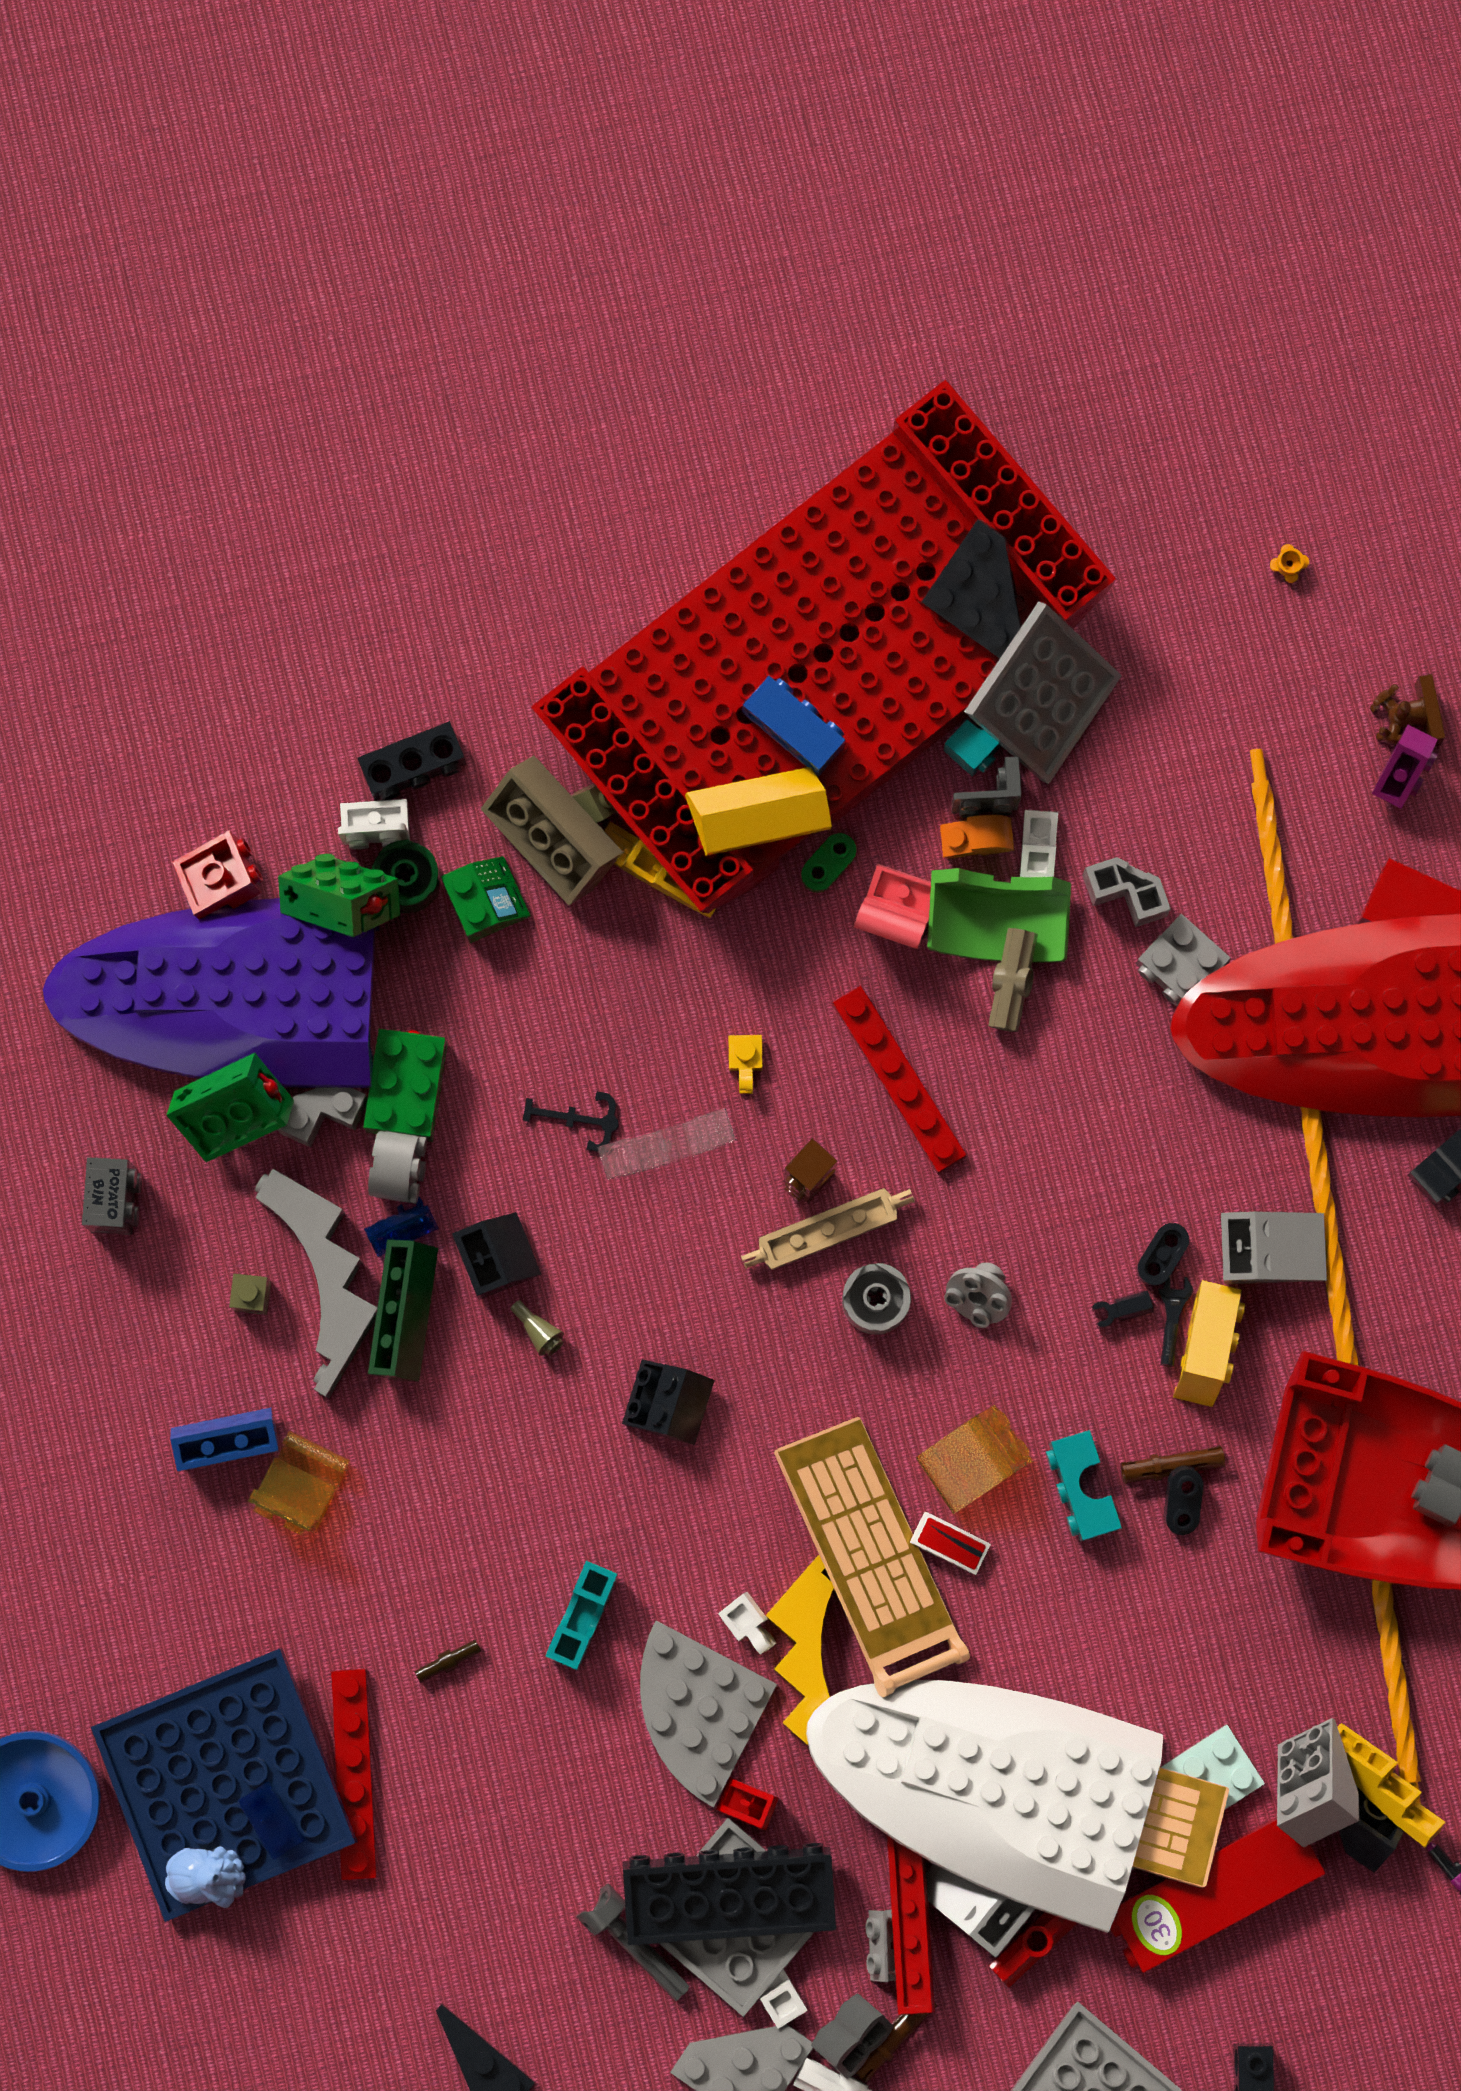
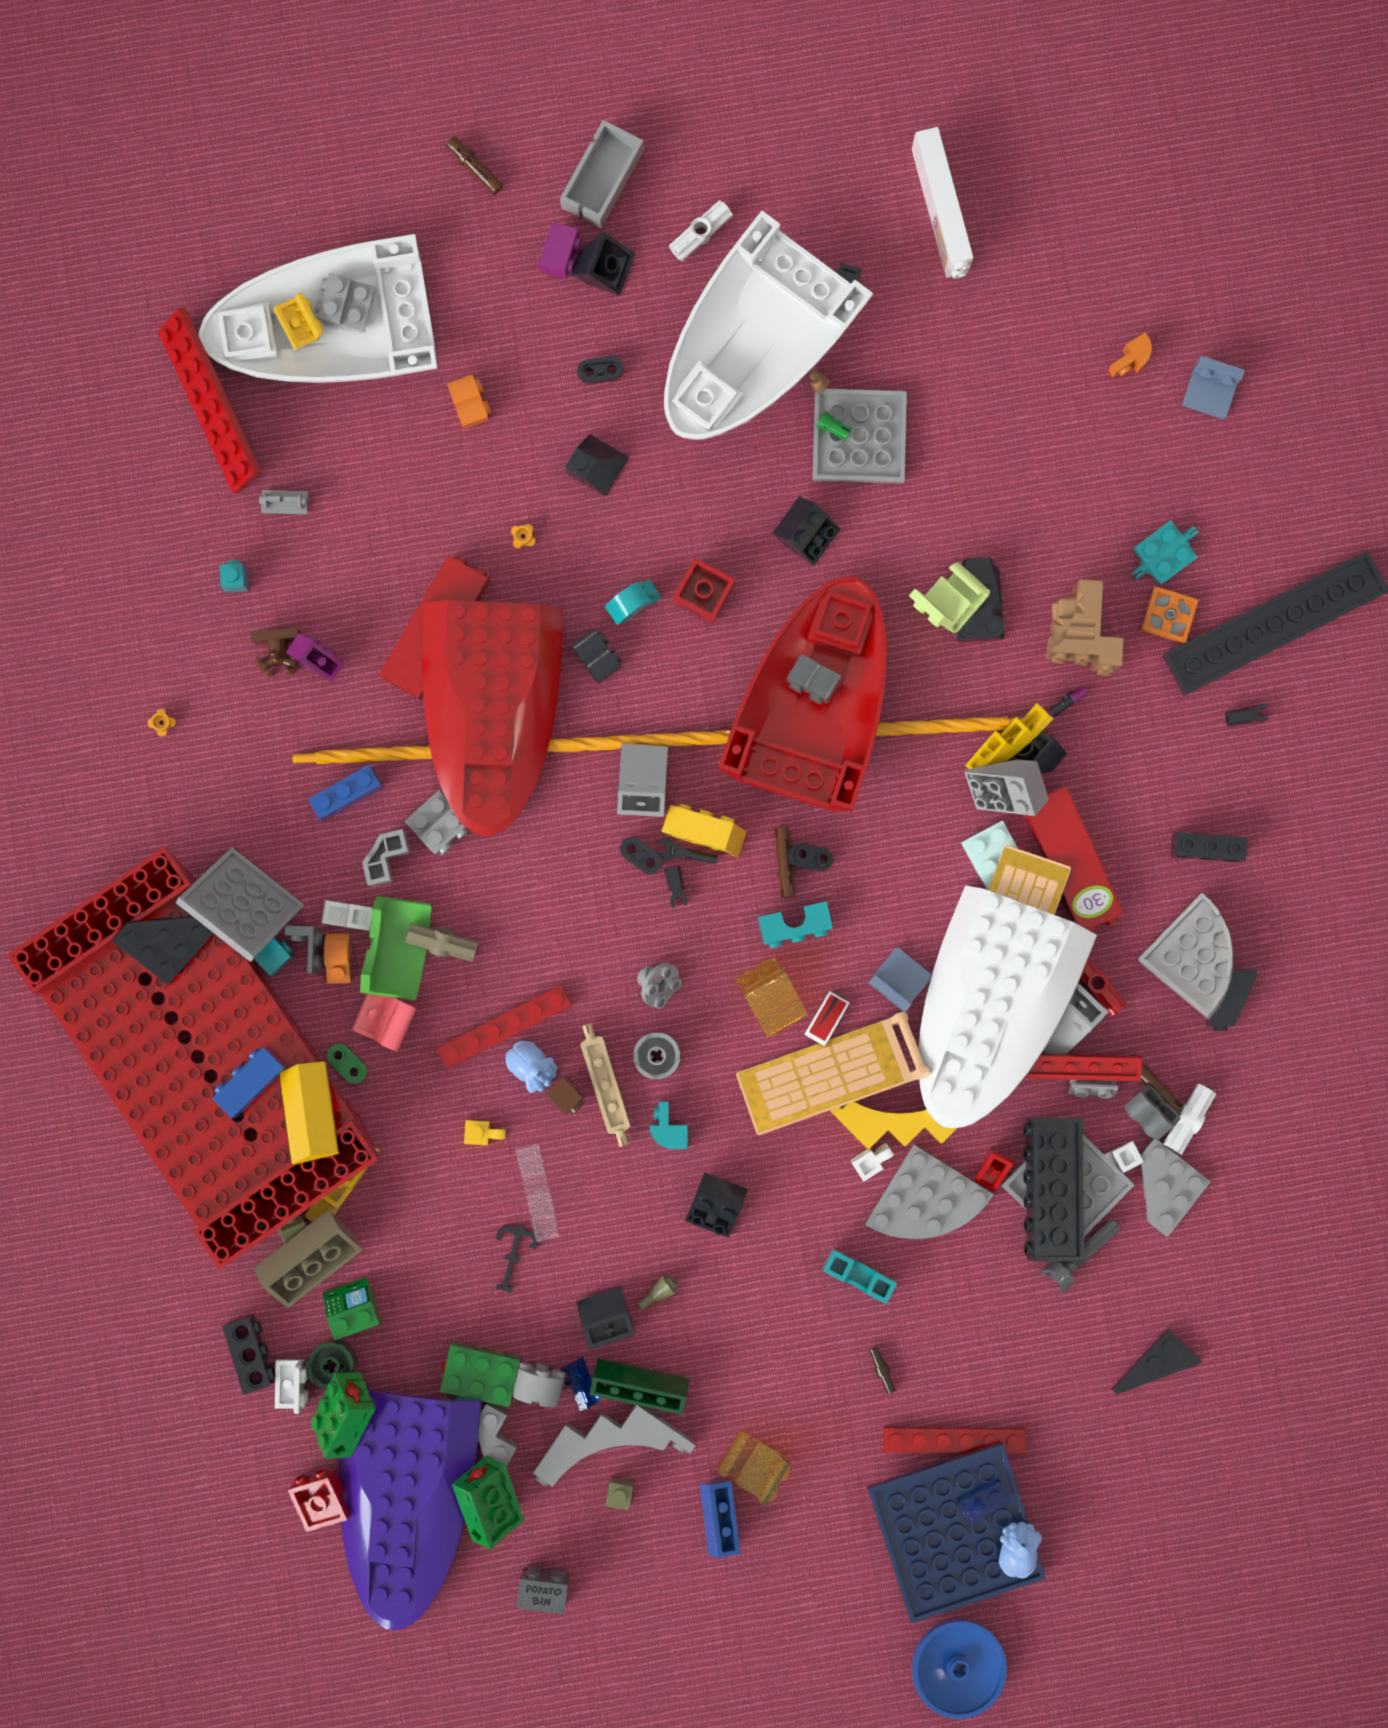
camera: 85 degrees left, 5 degrees up
(763, 1324) = (668, 1135): none -> teal brick
(846, 1121) = (531, 1066): none -> light blue hair
(1016, 1646) = (900, 979): none -> sand blue bracket
(1213, 827) = (345, 793): none -> blue brick

